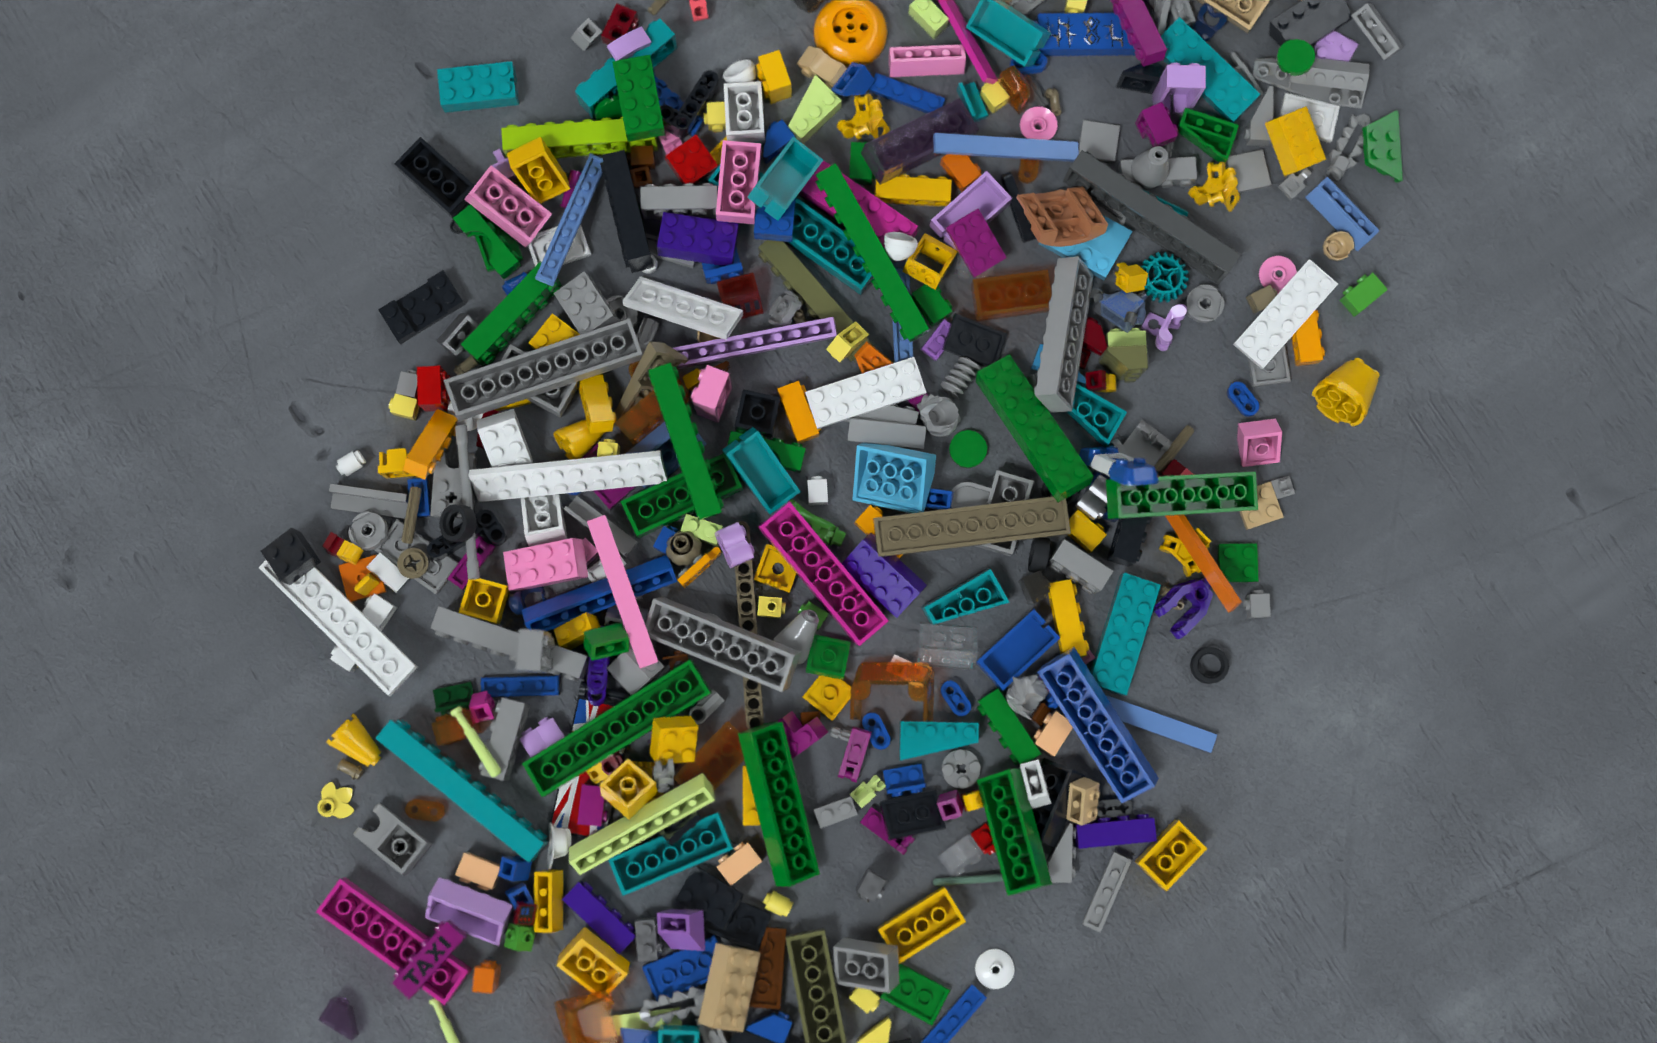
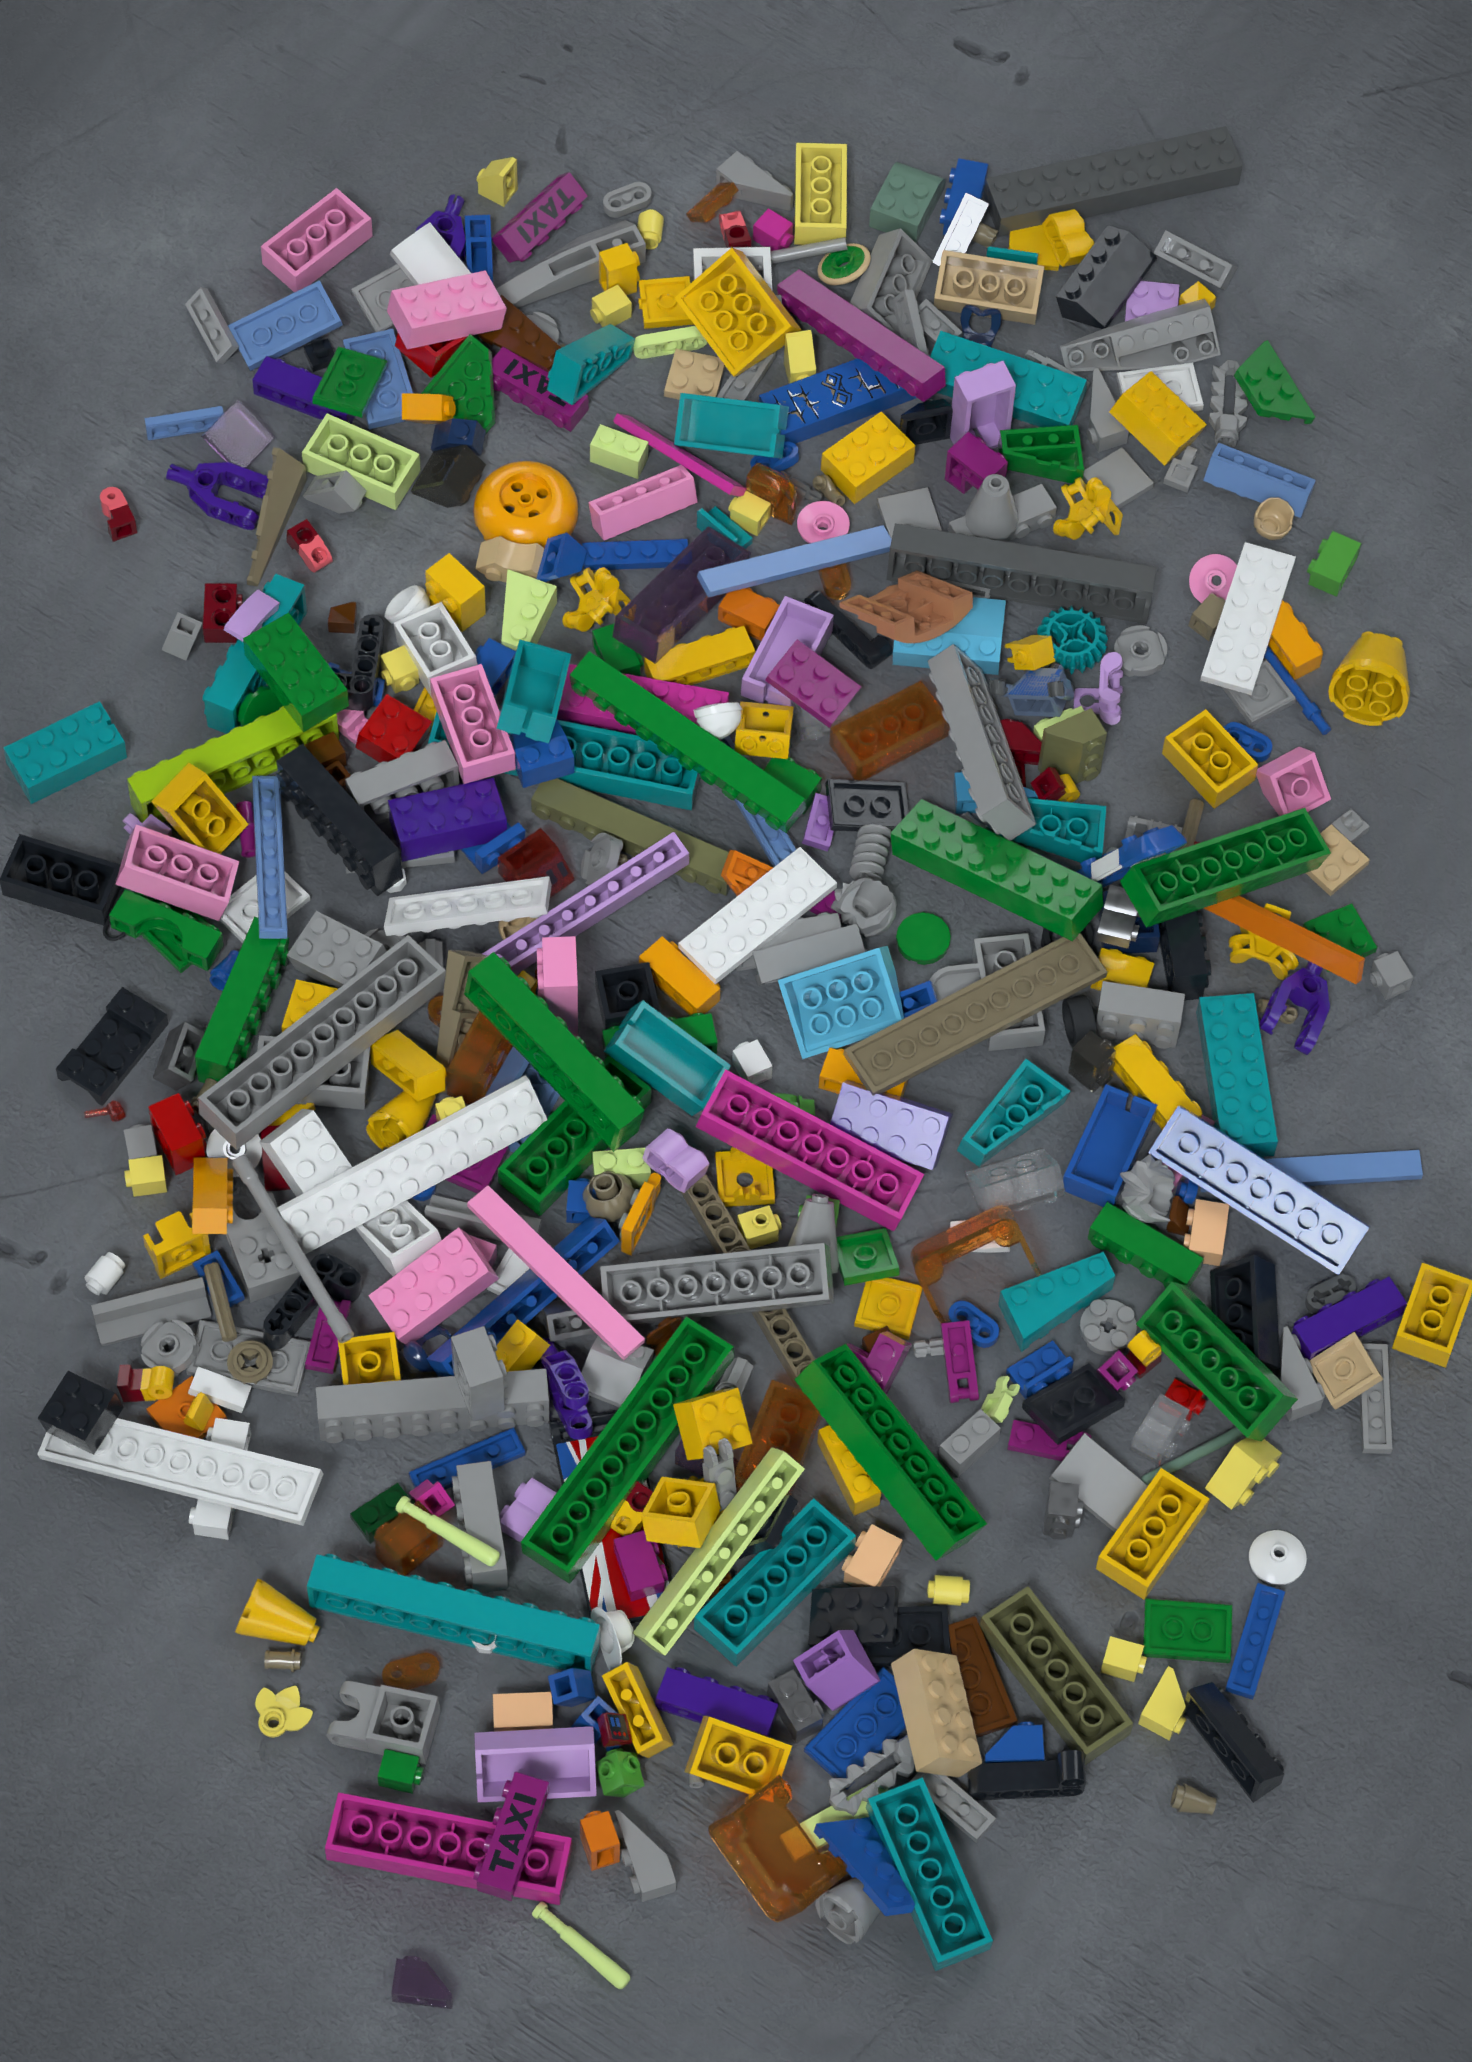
camera: 20 degrees left, 20 degrees down
(387, 876) = (400, 1771): none -> green brick
(406, 352) = (112, 1109): none -> clear red hand
(468, 523) = (312, 1276): black tyre -> none
(512, 1001) = (648, 1863): none -> light grey slope
(606, 641) = (563, 1341): green brick -> none
(697, 63) = (343, 618): none -> reddish brown slope
(847, 341) = (704, 862): light yellow slope -> none
(866, 965) = (1105, 1605): light grey brick -> none
(905, 874) = (1105, 1484): none -> light grey tile
(955, 698) = (1059, 1241): blue plate -> none
(998, 909) = (1241, 1469): none -> light yellow brick
(1035, 784) = (1215, 1293): white brick -> none
(1083, 801) = (1287, 1292): tan brick -> none
(1090, 88) = (868, 457): none -> yellow brick
(1095, 868) = (1345, 1370): none -> tan plate
(1212, 403) = (1210, 758): none -> yellow brick
(1223, 661) = (1368, 1052): black tyre -> none
(1295, 57) = (1109, 322): green tile -> none
(1296, 393) = (1310, 710): none -> blue bar
(1366, 57) = (1197, 292): none -> yellow slope

